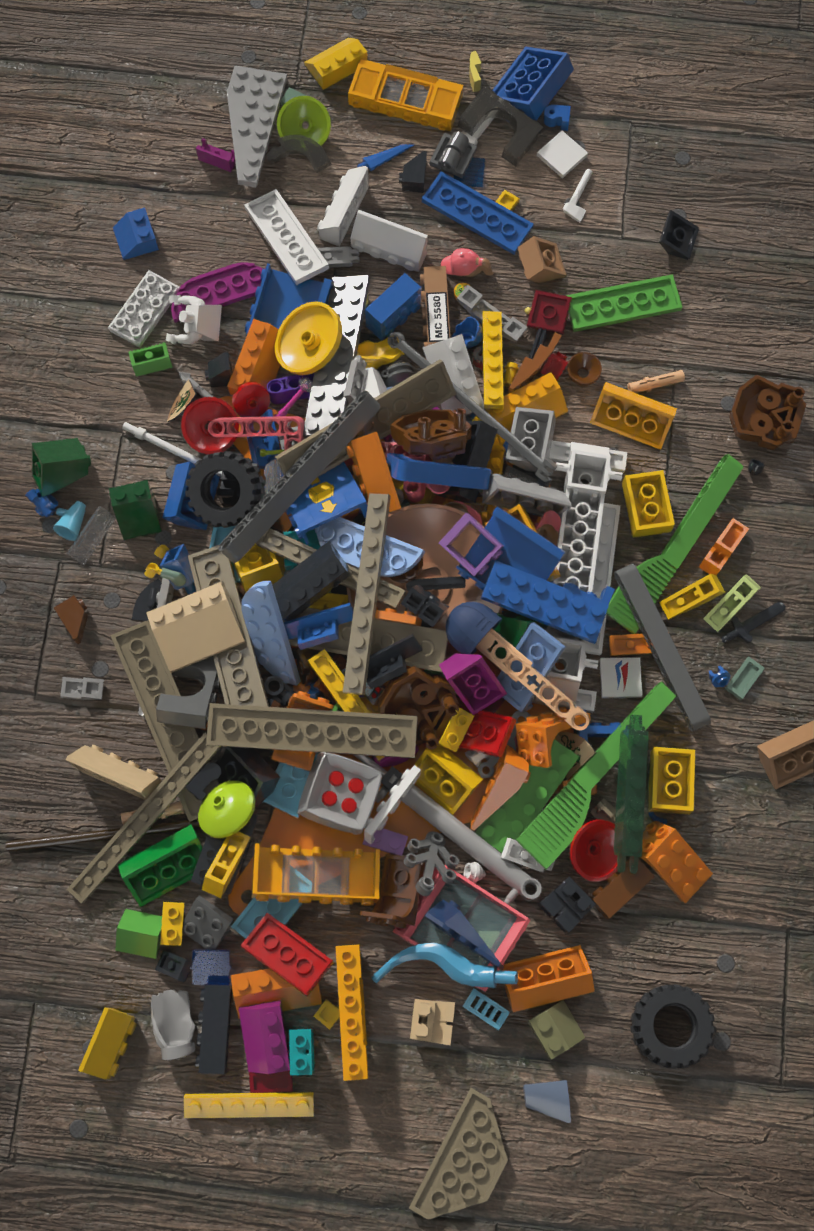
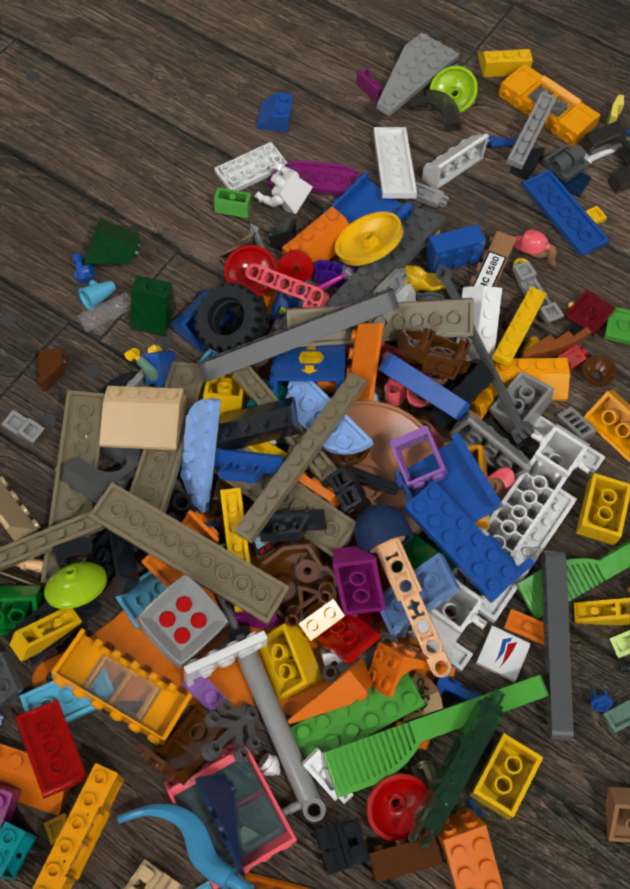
camera: 25 degrees right, 10 degrees down
(142, 434) = (194, 256): white bar -> none
(389, 241) = (478, 200): white slope -> none
(405, 138) = (531, 130): none -> light grey plate
(470, 331) = (511, 298): blue hair -> none
(541, 260) = (602, 270): medium nougat slope -> none
(597, 430) = (589, 430): none -> light grey slope

